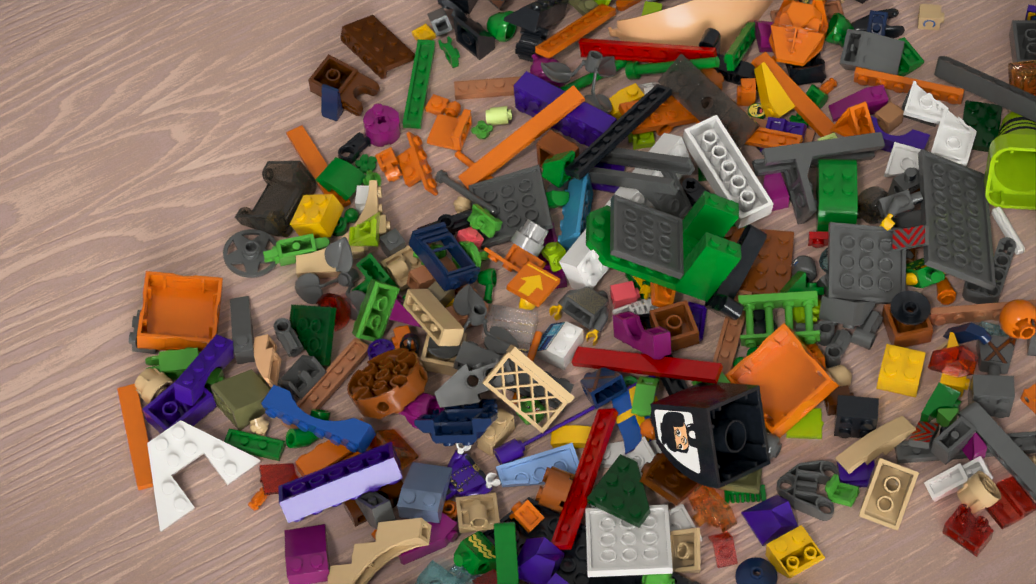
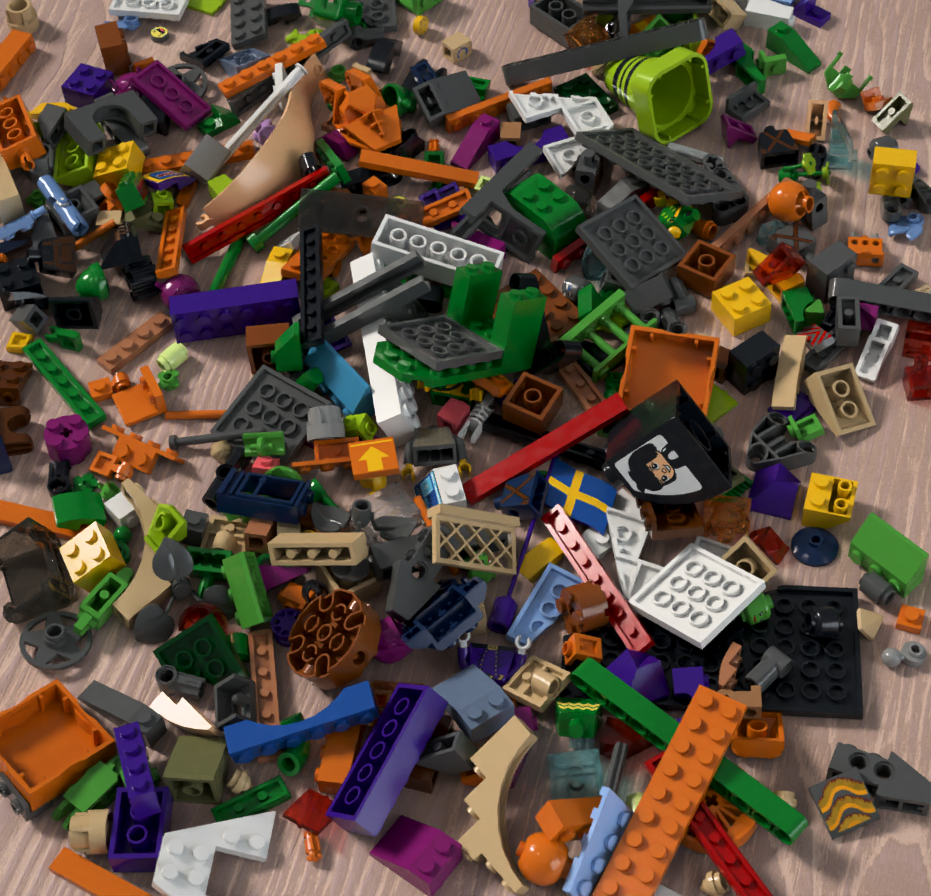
camera: 45 degrees left, 5 degrees down
(341, 341) = (241, 645): none -> green brick
(522, 137) = (223, 354): orange tile -> none
(594, 64) = (225, 252): dark grey plant -> none
(622, 492) = (646, 562): dark green plate -> none
(644, 395) = (573, 473): bright green slope -> none
(647, 429) = (605, 496): orange piece -> none
(653, 341) = (493, 435): magenta arch -> none
(772, 96) = (399, 178): yellow slope -> none
(854, 121) = (497, 151): orange slope -> none
(897, 205) = (607, 184): dark grey torso -> none
(910, 237) = (652, 193): tile -> none
(910, 301) = (704, 249): black dish -> none
(969, 332) = (760, 241): dark blue piece -> none
(979, 492) = (907, 344): tan piece -> none

